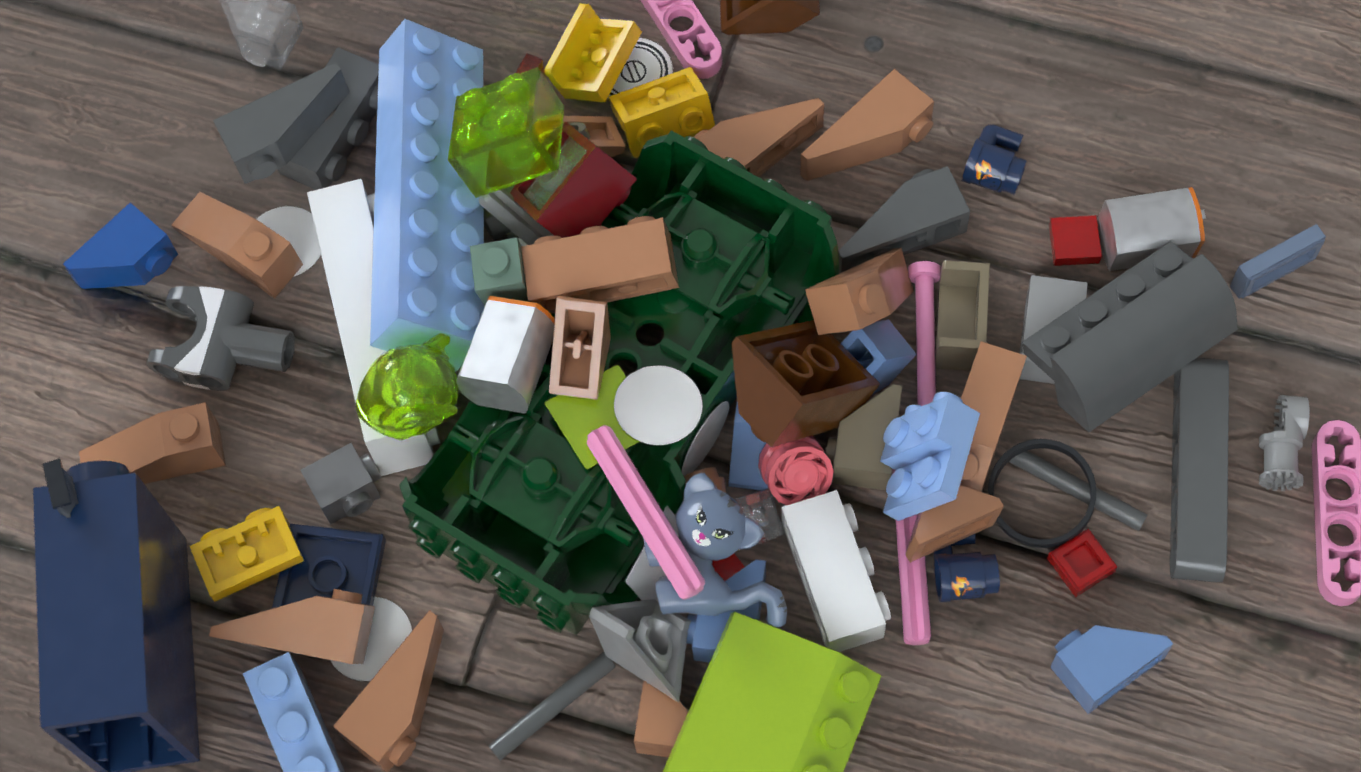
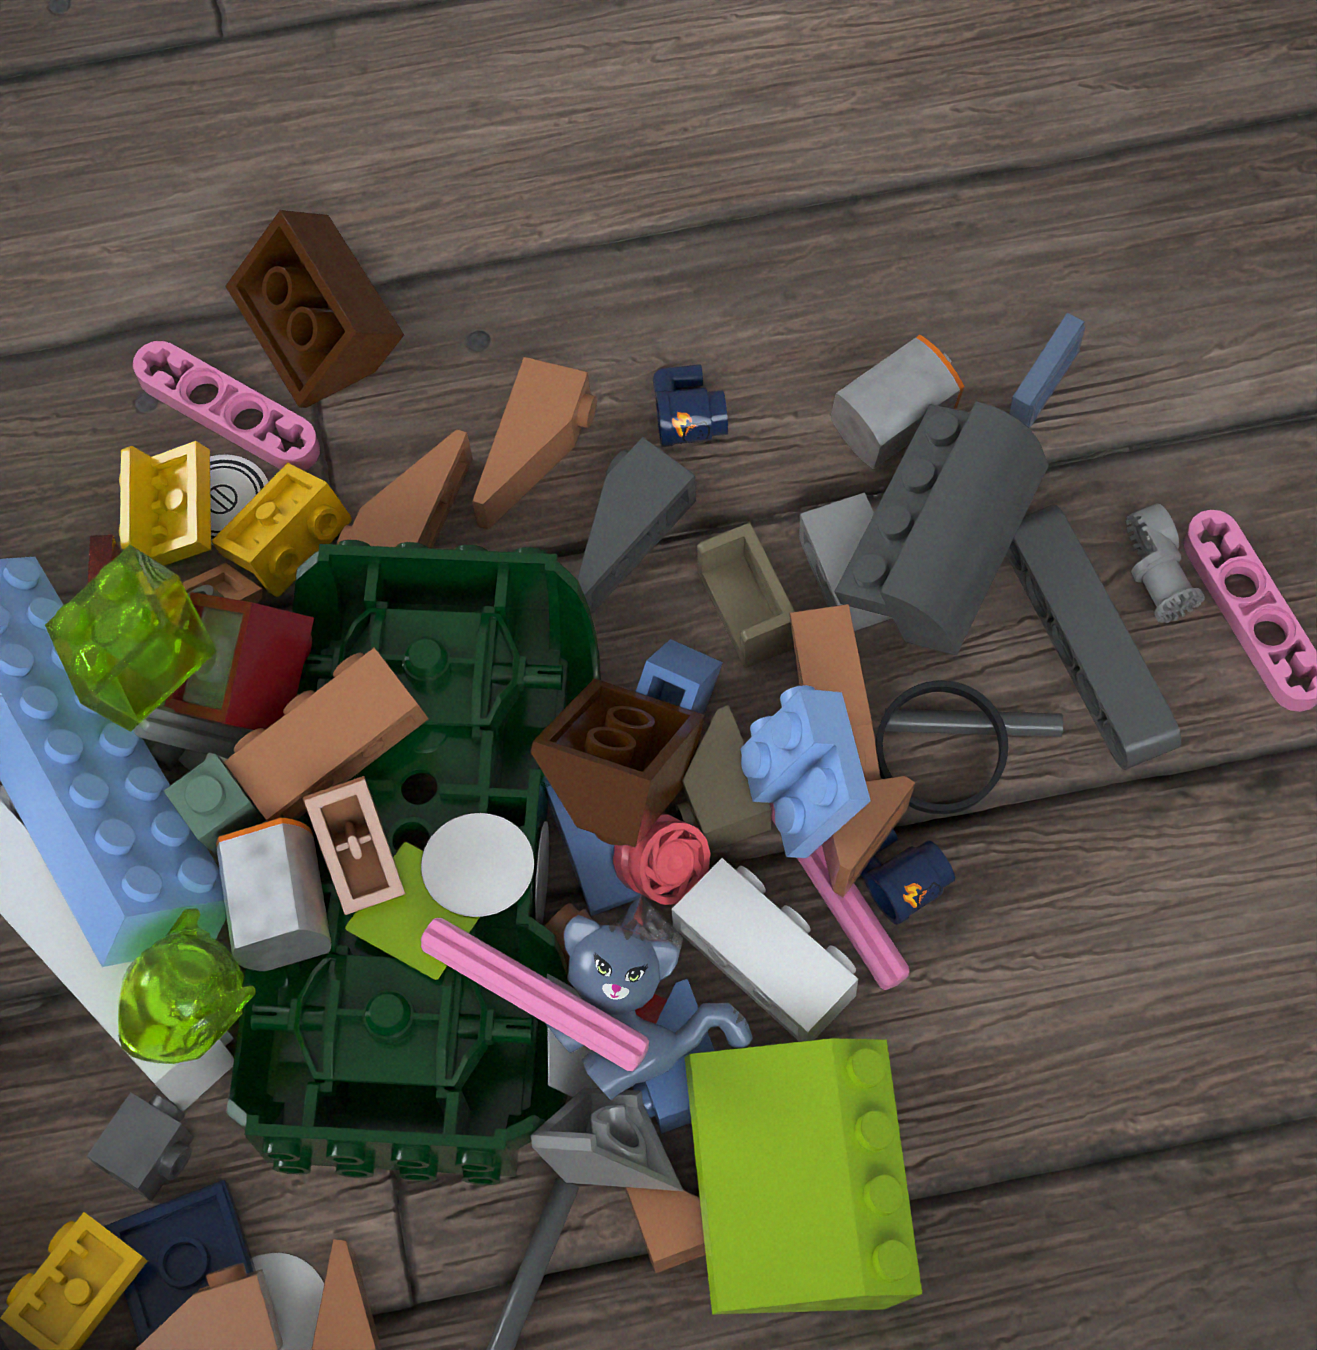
camera: 30 degrees left, 0 degrees up
(860, 294) = (629, 627): nougat slope -> none
(924, 276) = (680, 571): bright pink bar -> none
(1075, 240) = (819, 453): red tile -> none
(1082, 562) = (1021, 801): red tile -> none
(1105, 661) = (1108, 897): medium blue slope -> none

